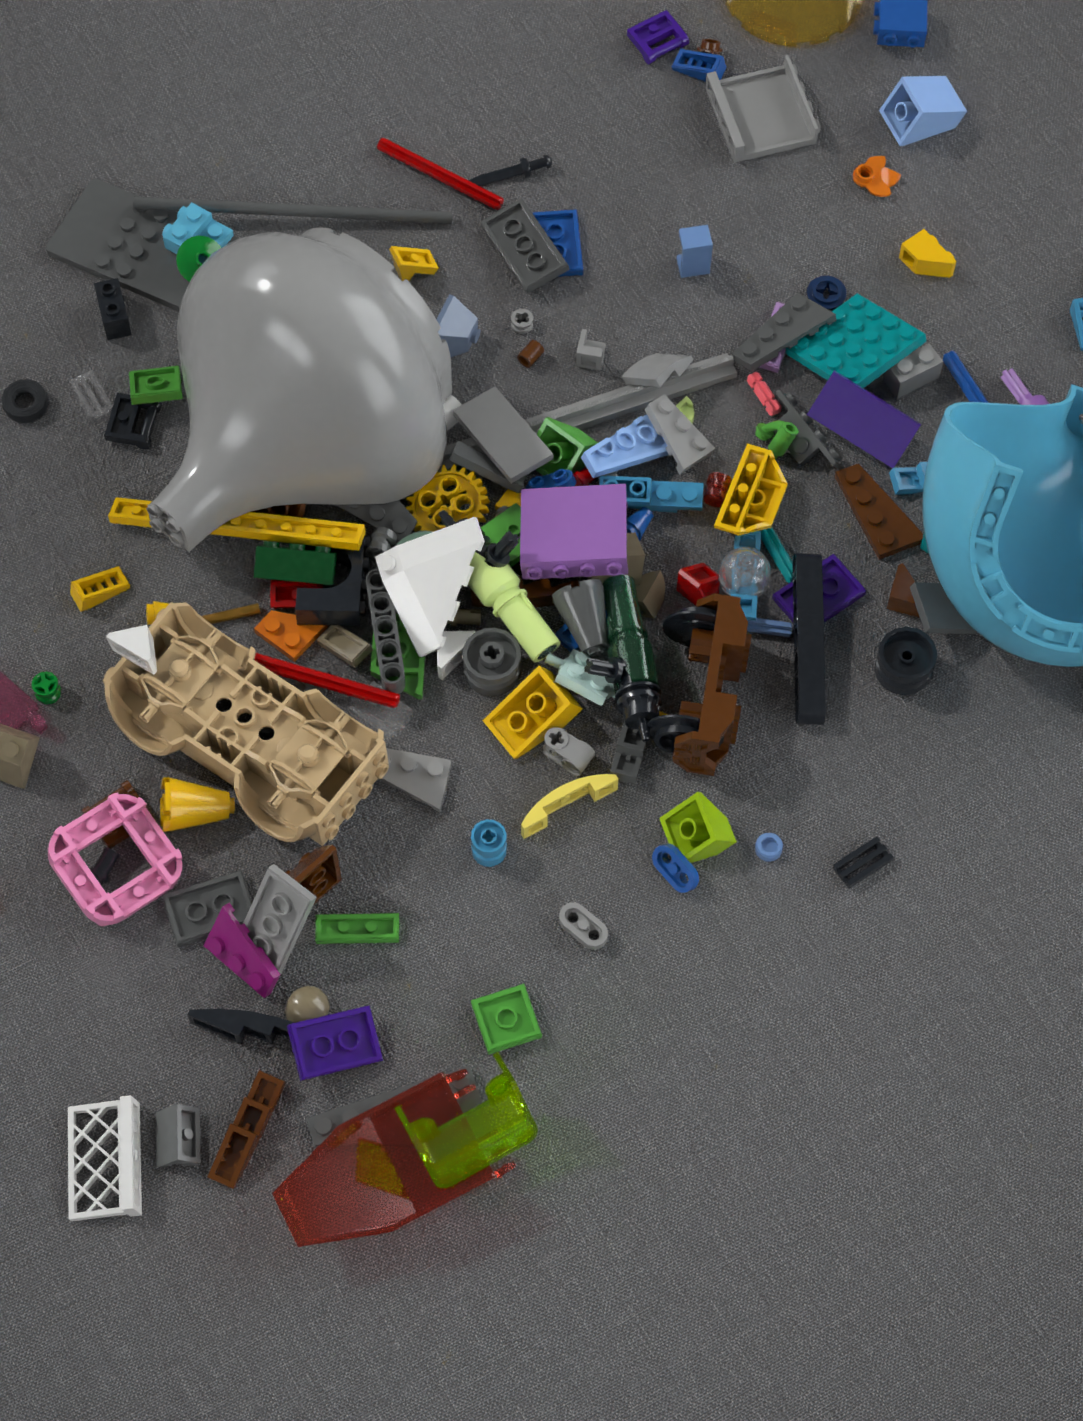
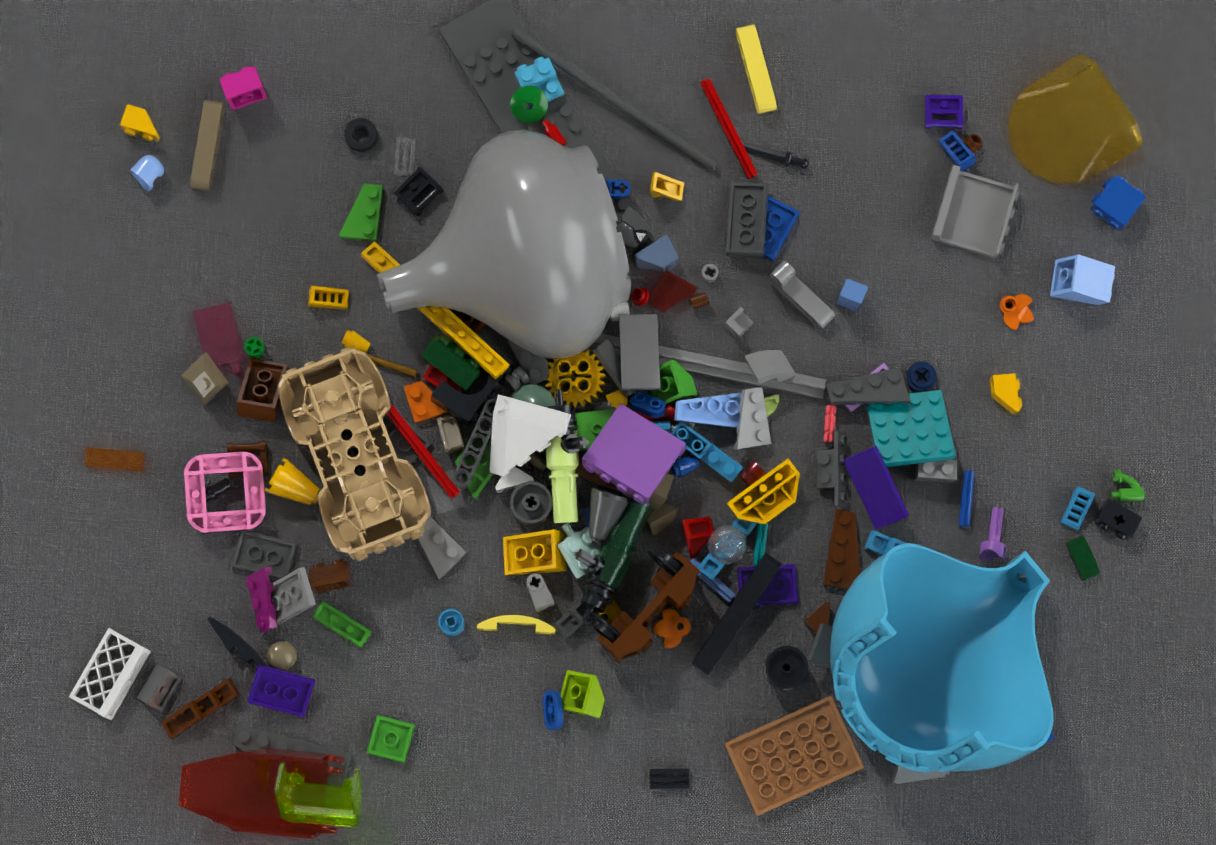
camera: 30 degrees right, 15 degrees up
(85, 480) = (365, 215): none -> bright green wing
(86, 728) = (259, 390): none -> reddish brown slope
(112, 309) = (454, 102): black brick -> none
(136, 646) = (314, 368): white slope -> none
(155, 385) = (445, 176): bright green plate -> none
(428, 102) = (756, 69): none -> light yellow beam
(462, 384) = (640, 296): none -> red plate
(492, 361) = (670, 292): none -> clear red wing
(586, 925) = (473, 711): light grey plate -> none
(636, 286) = (786, 282): none -> light grey beam
(751, 705) = (669, 628): none -> orange plate
(768, 847) = (619, 731): medium blue tile -> none
(782, 439) = (817, 466): bright green plant -> none
(982, 751) = (793, 755): none -> medium nougat plate

